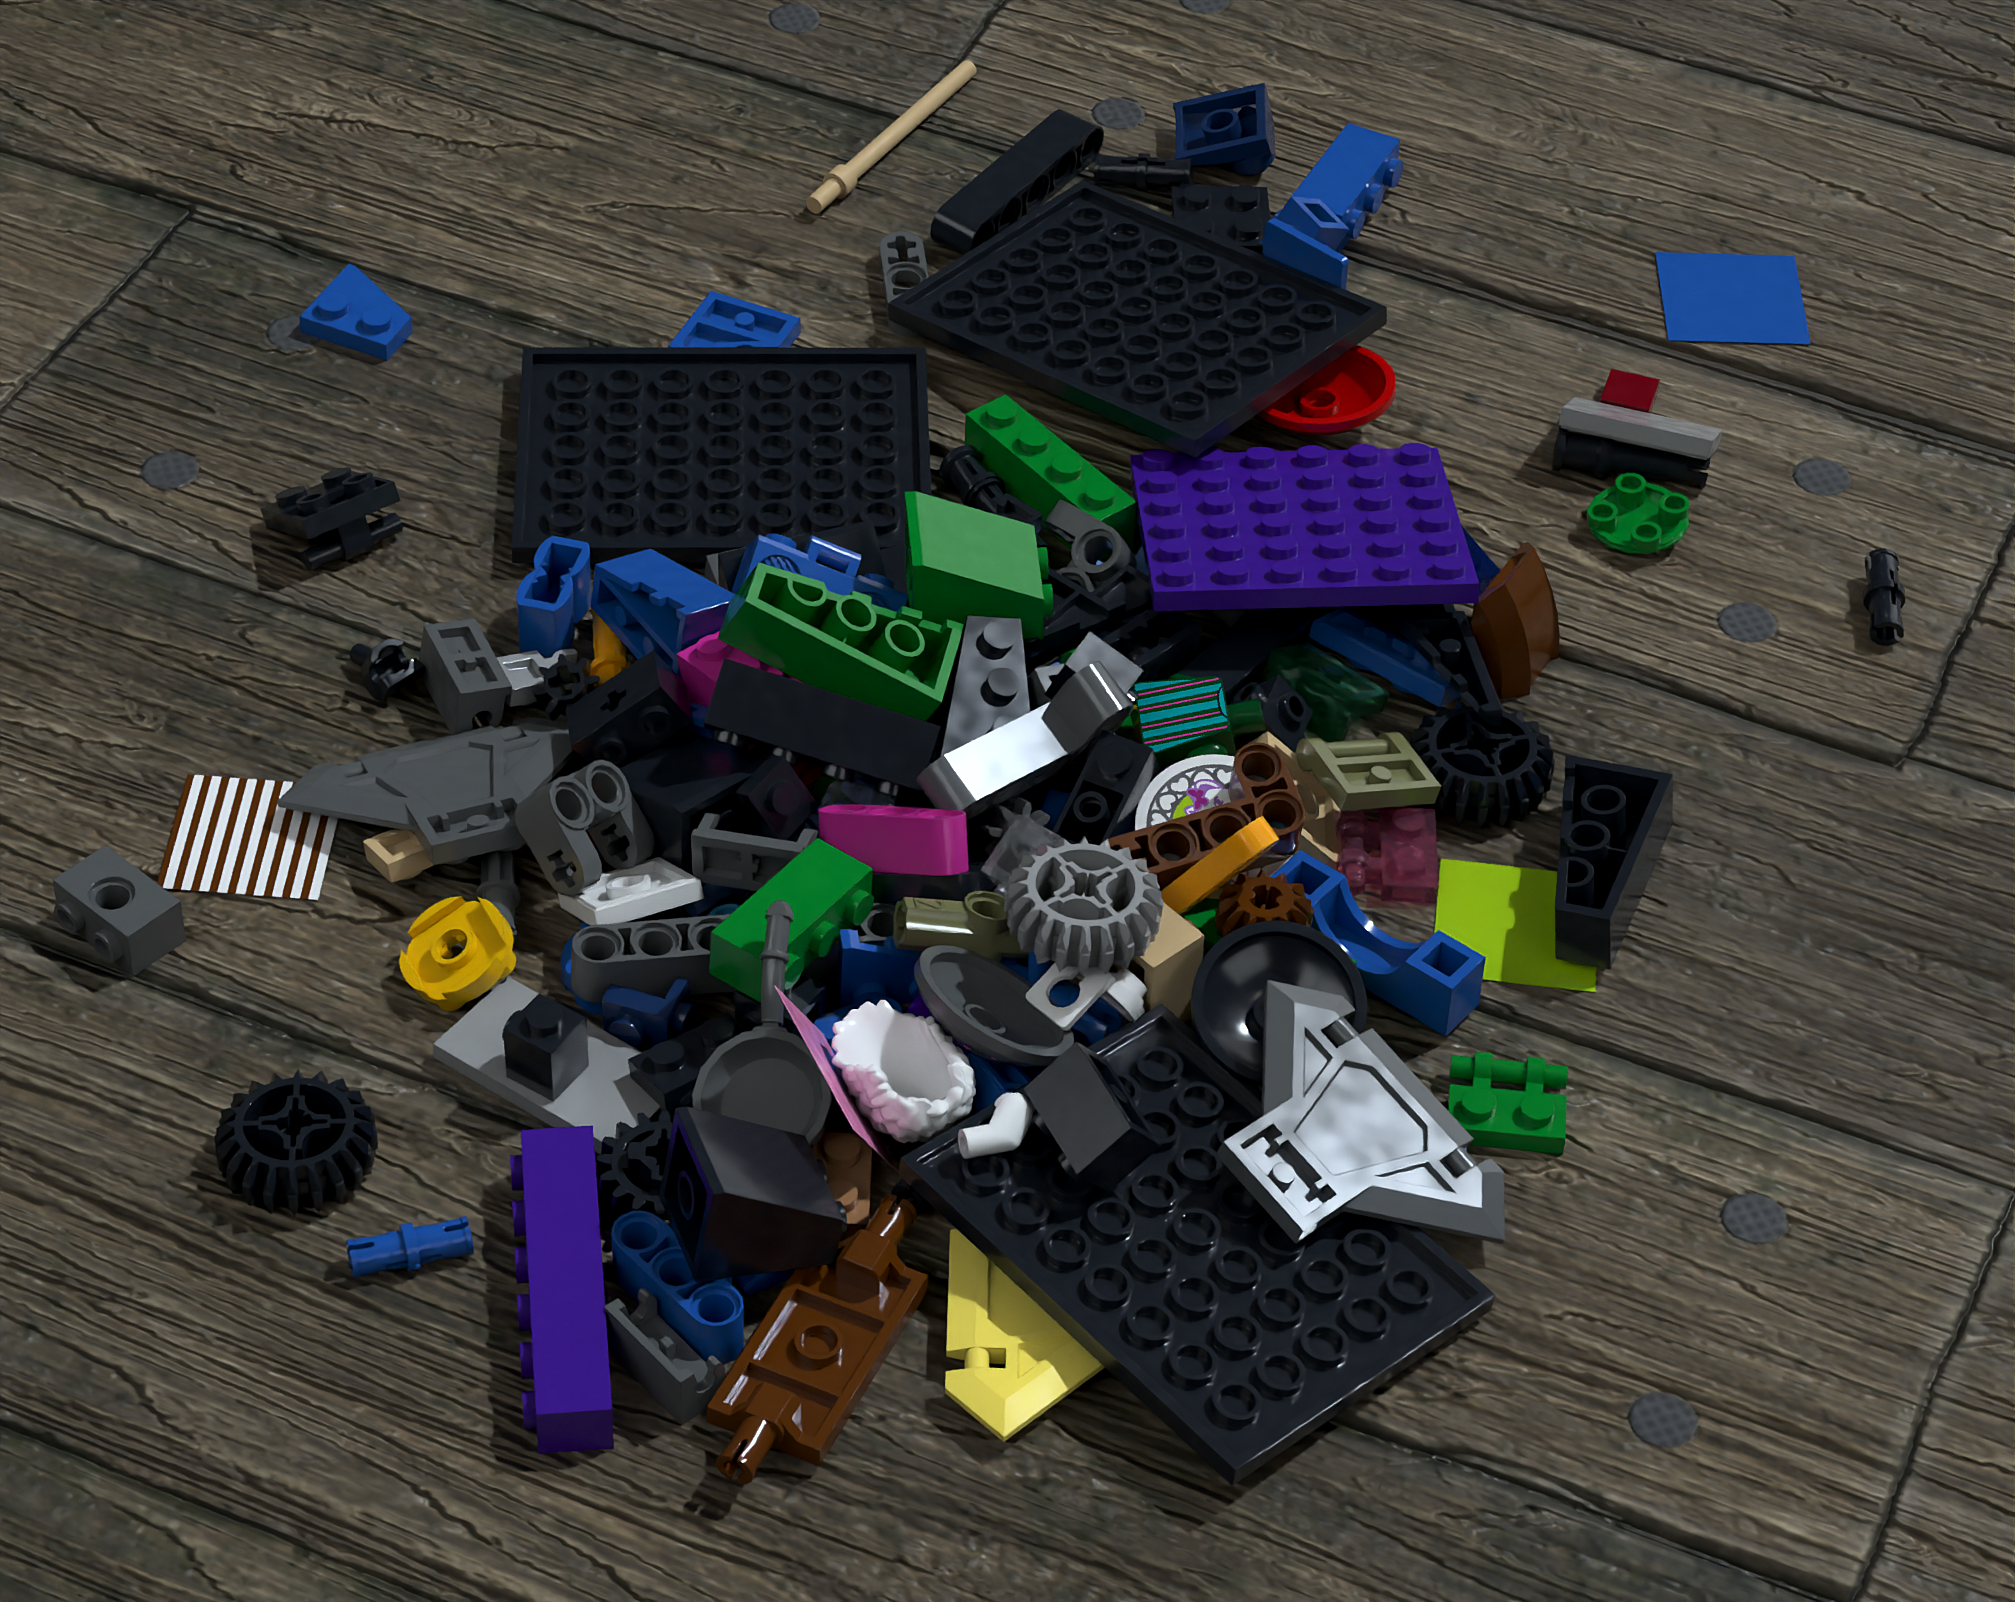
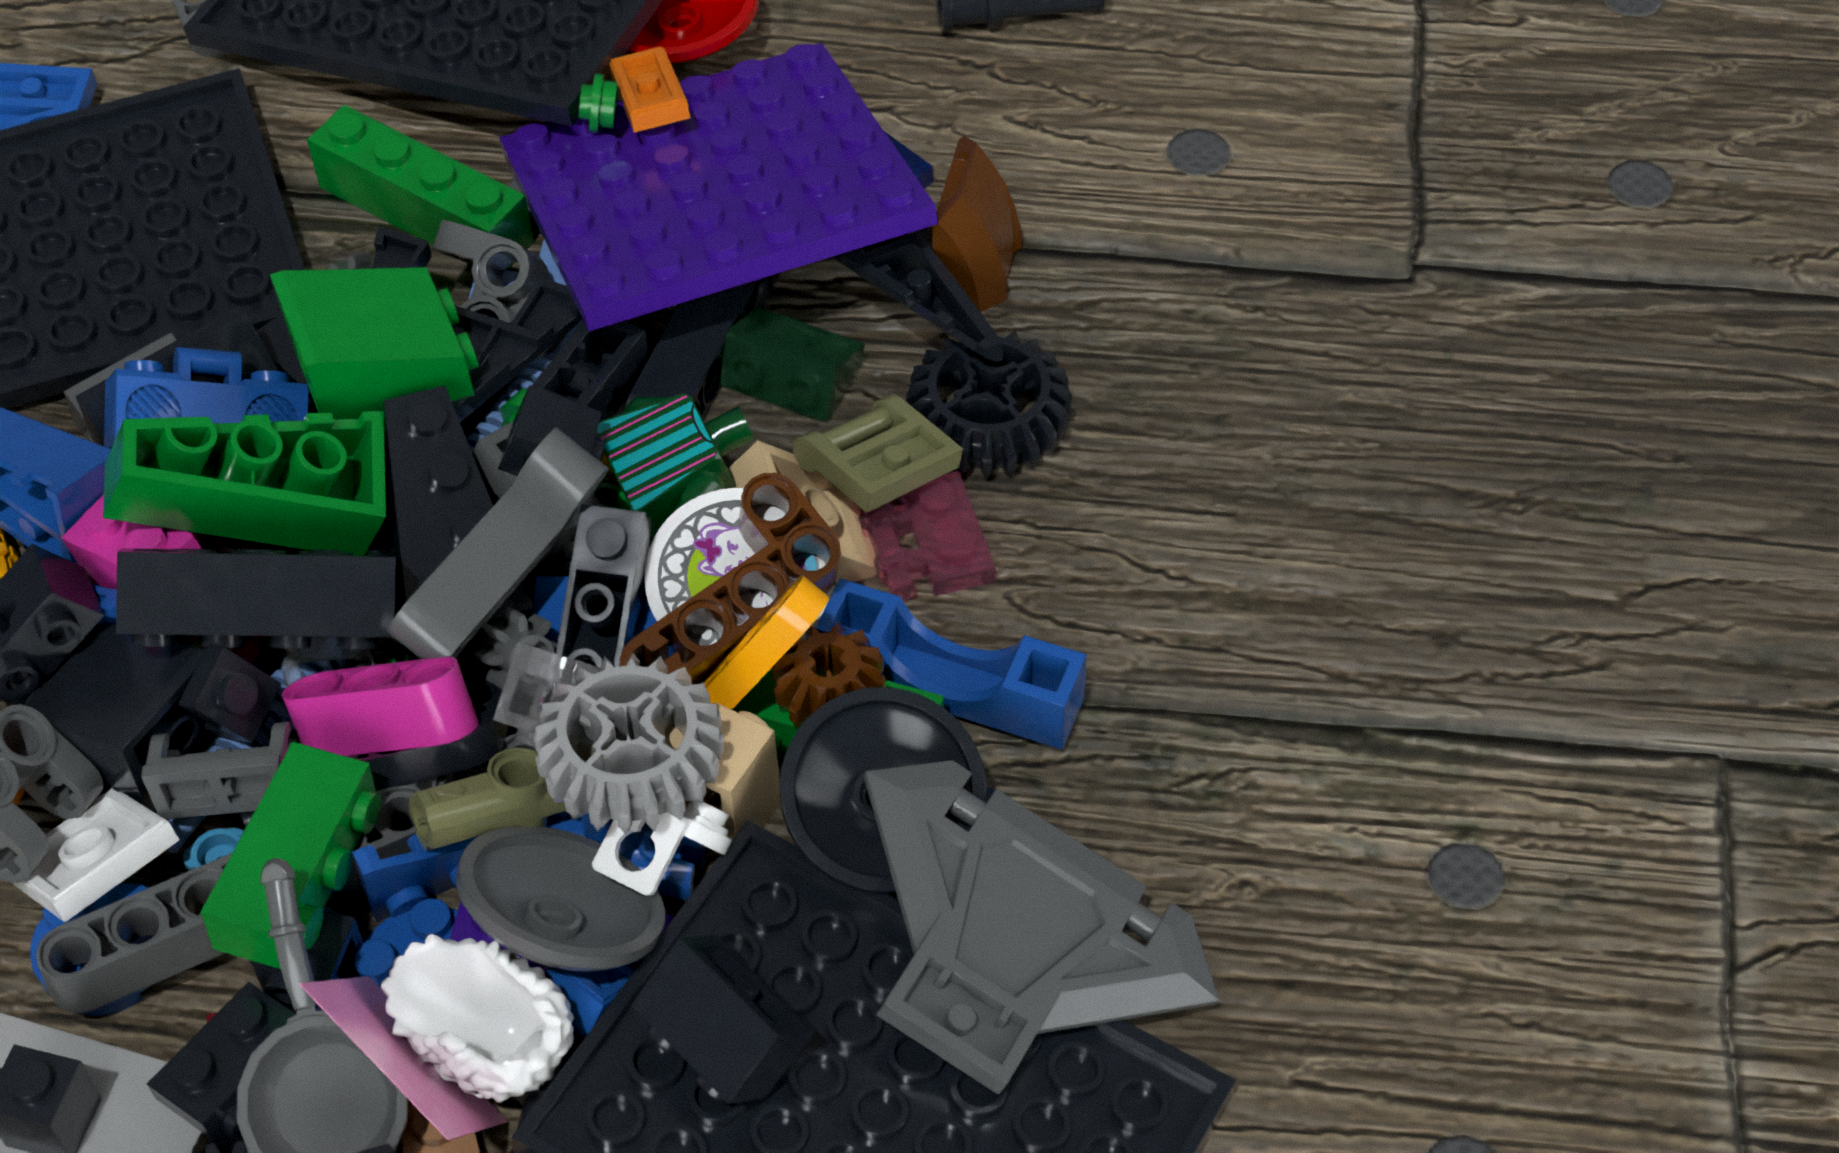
camera: 15 degrees left, 10 degrees up
(647, 1019) = (156, 1018): dark blue bracket -> none
(977, 484) = (348, 219): black pin -> none
(1004, 1130) = (623, 1060): white arm -> none
(1223, 443) = (599, 103): none -> green plate
(1270, 442) = (649, 89): none -> orange plate
(1282, 709) = (762, 402): black brick -> none
(1382, 652) = (845, 299): blue plate -> none
(1509, 1117) = (1162, 833): green plate -> none
(1510, 921) = (1092, 580): lime sticker -> none
(1608, 848) = (1158, 469): black wedge -> none
(1638, 516) = (1050, 63): green dish -> none
(1884, 597) = (1329, 87): black pin -> none

